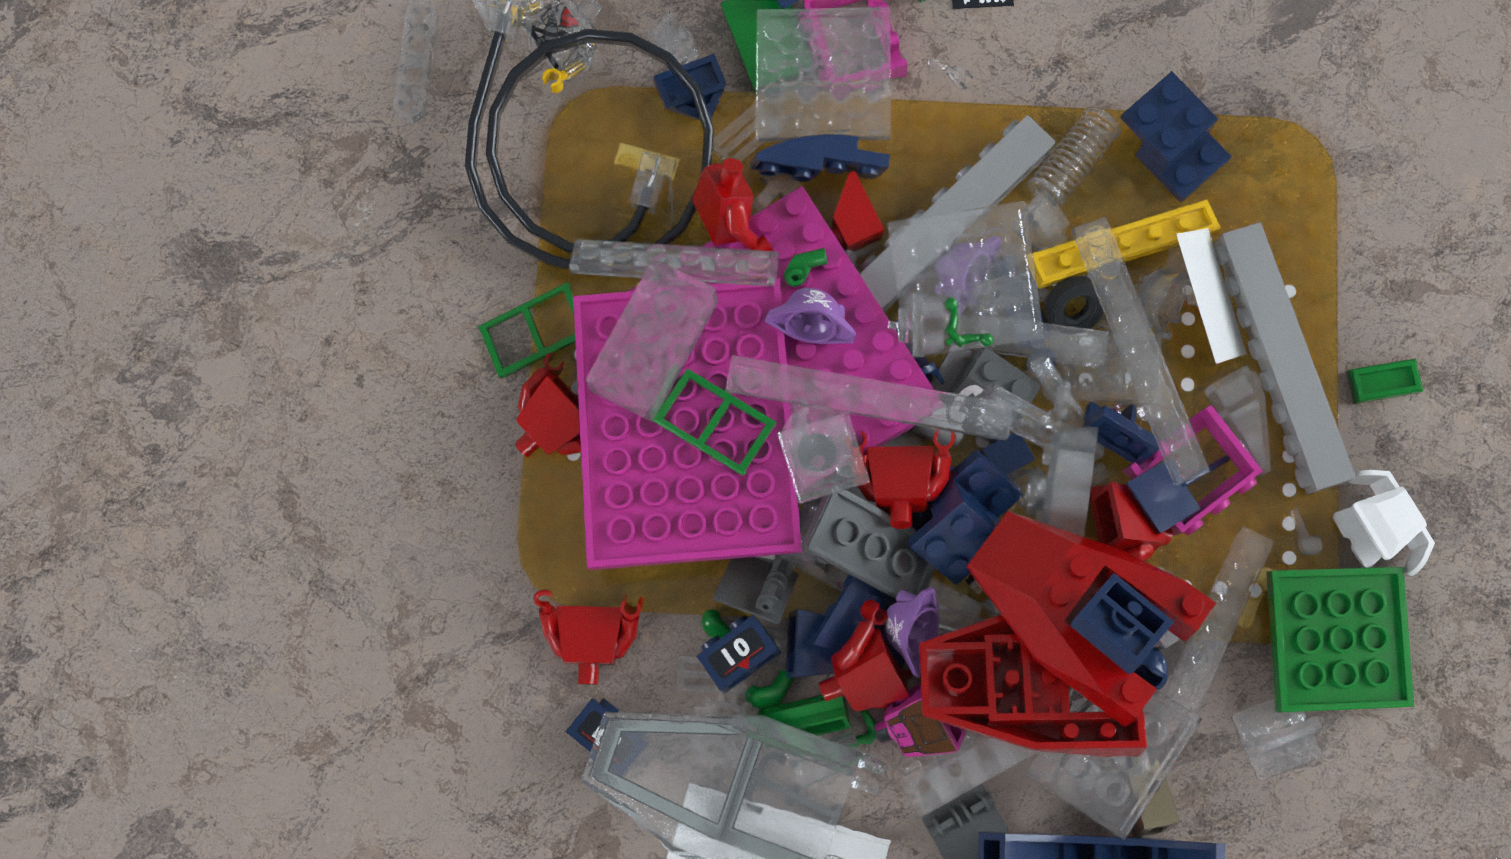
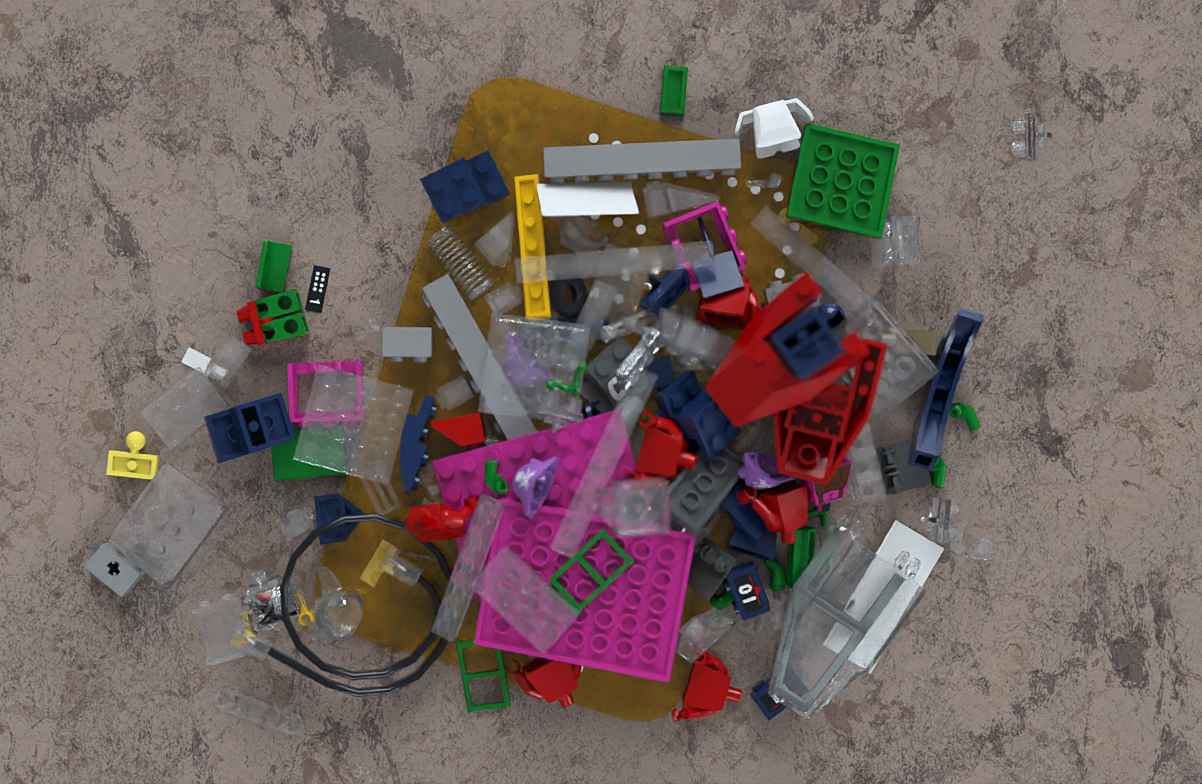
camera: 80 degrees left, 10 degrees up
(570, 114) = (335, 612): none -> clear helmet
(664, 601) = (702, 633): none -> clear slope
(899, 194) = (454, 393): none -> clear brick
(948, 119) = (407, 342): none -> light grey brick
(1117, 199) = (498, 242): none -> clear slope

